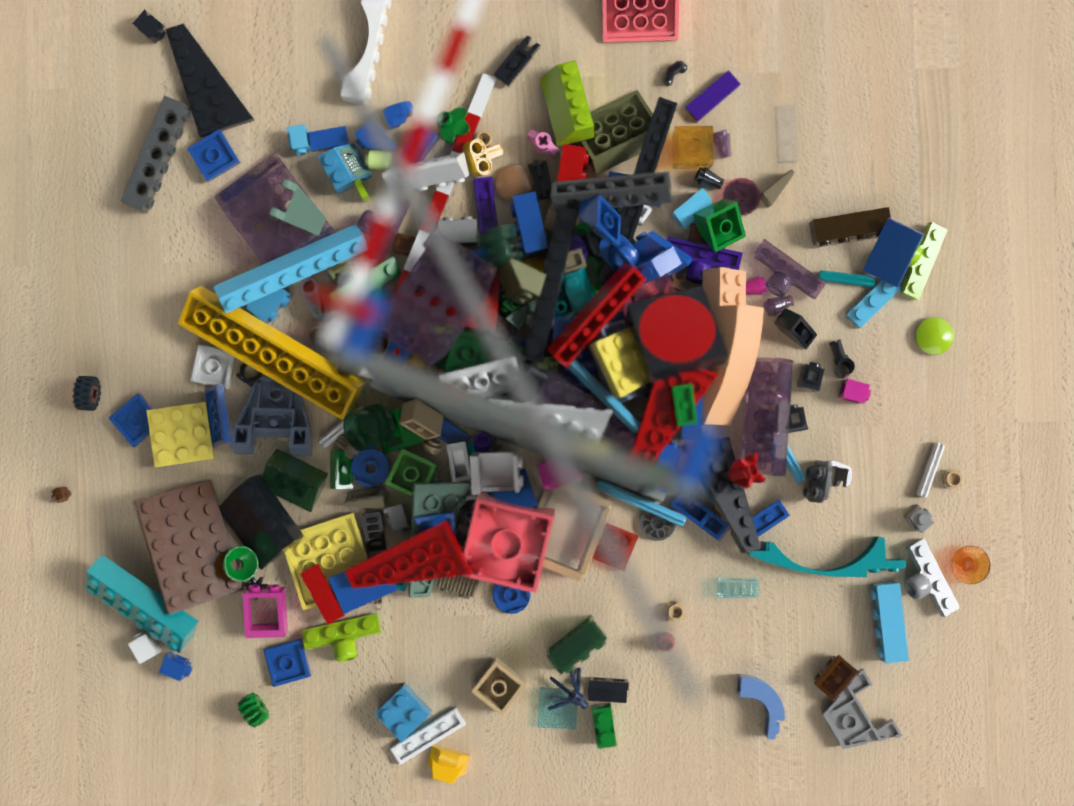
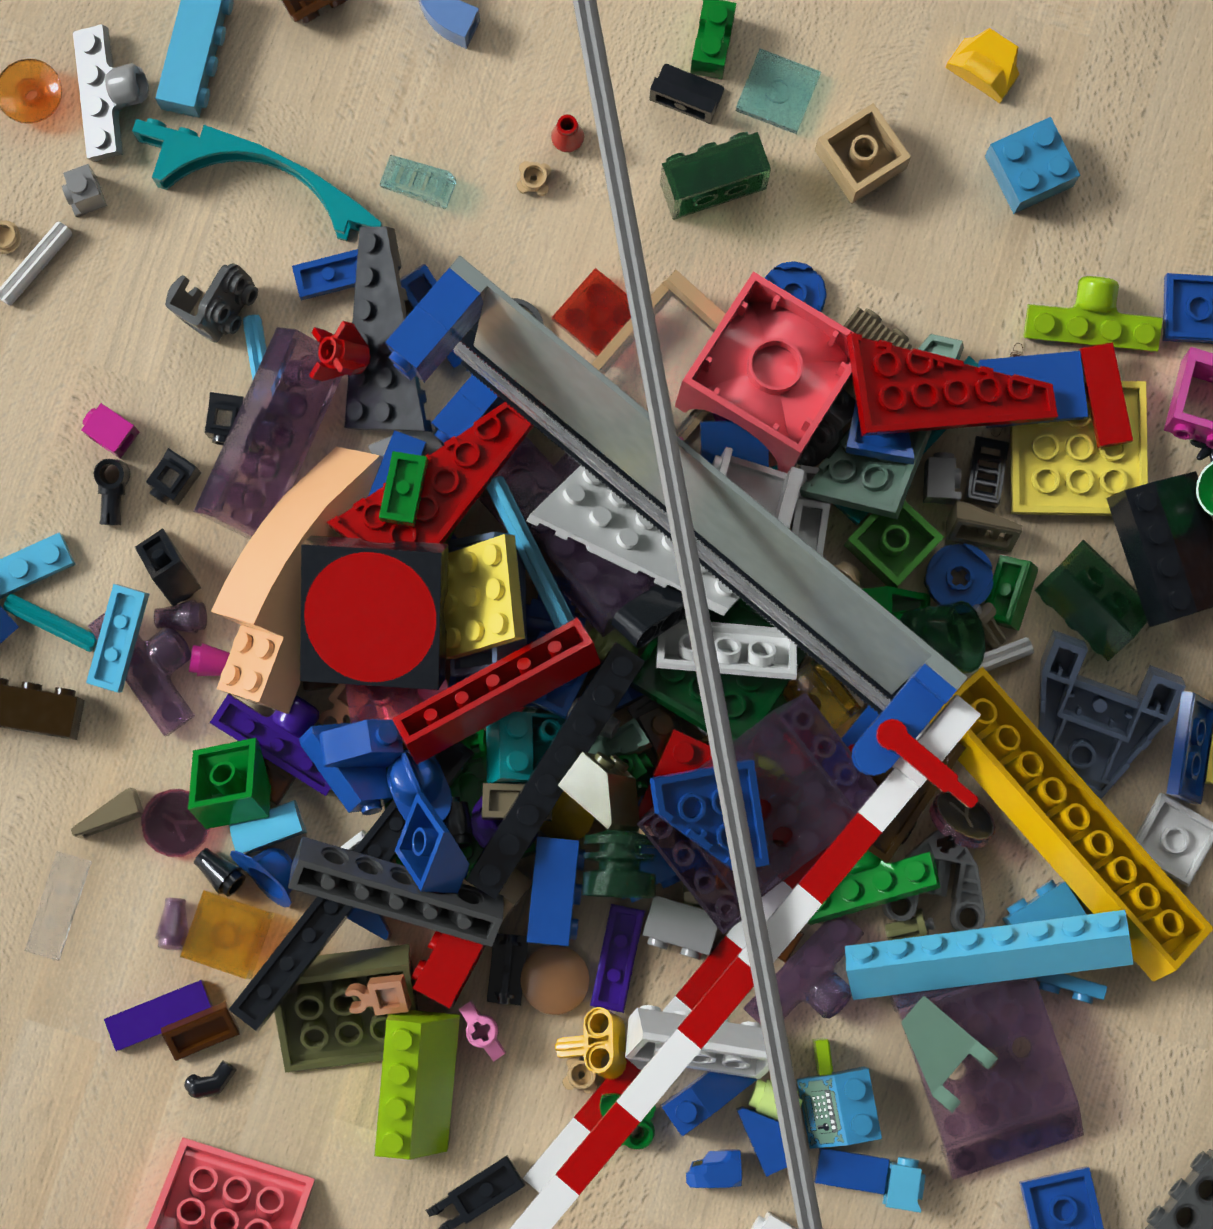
camera: 165 degrees left, 5 degrees down
(237, 269) = (1082, 989): none -> dark azure plate
(240, 376) = (1120, 791): black piece -> none
(428, 735) = (1002, 117): white tile -> none
(447, 295) = (693, 807): none -> blue plate
(574, 696) = (745, 97): dark blue plant -> none
(601, 140) = (382, 993): none -> nougat plate
(681, 187) = (270, 872): none -> blue piece
(689, 94) = (200, 1031): none -> reddish brown tile
(807, 280) = (117, 638): none -> medium azure plate

